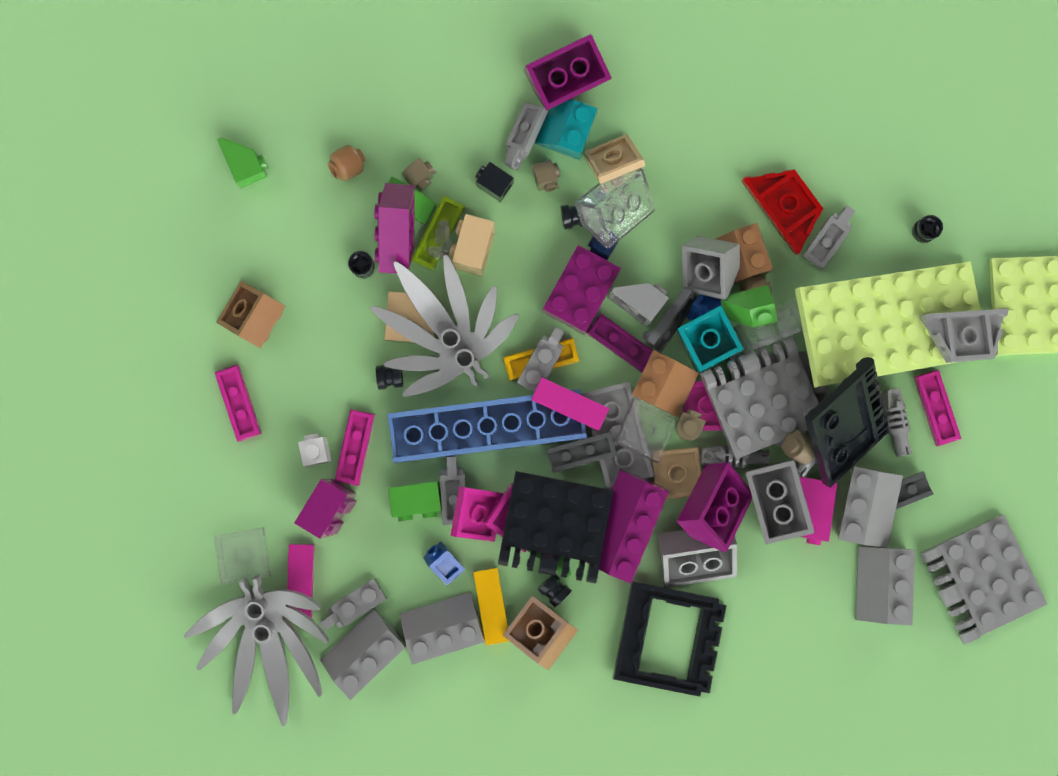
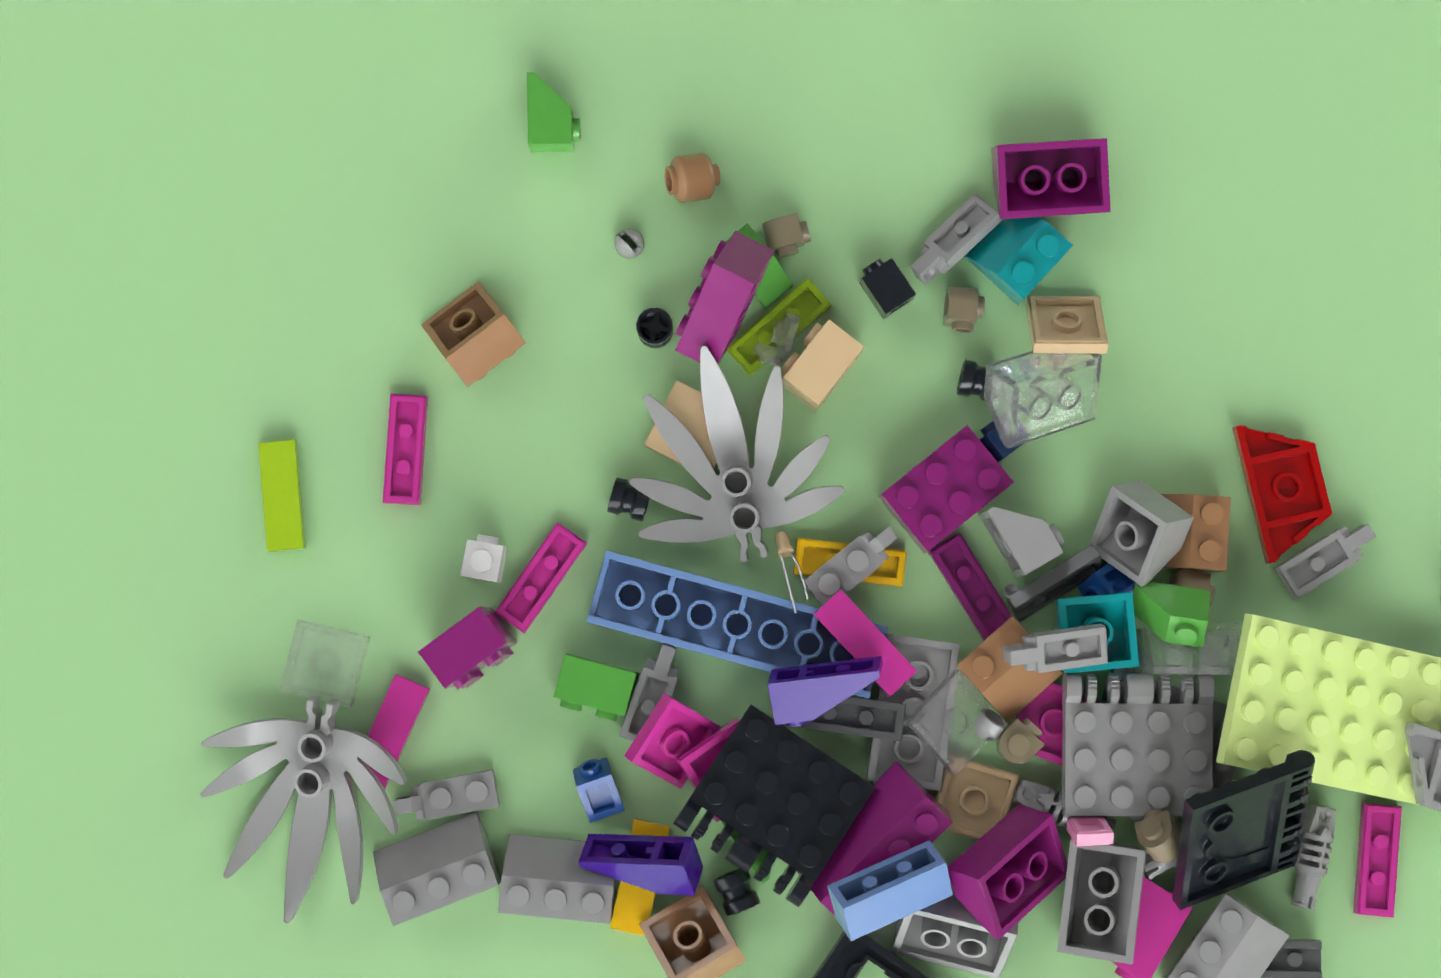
camera: 25 degrees right, 0 degrees up
(172, 463) = (281, 495): none -> lime tile
(322, 223) = (624, 249): none -> light grey hinge
(493, 594) = (649, 862): none -> dark purple slope
(498, 368) = (786, 550): none -> piece
(549, 446) = (810, 690): none -> slope
(647, 549) = (890, 890): none -> medium blue brick
(667, 423) = (989, 725): none -> light grey hinge
(690, 358) = (1059, 649): none -> light grey hinge
(755, 462) = (1089, 830): none -> bright pink tile

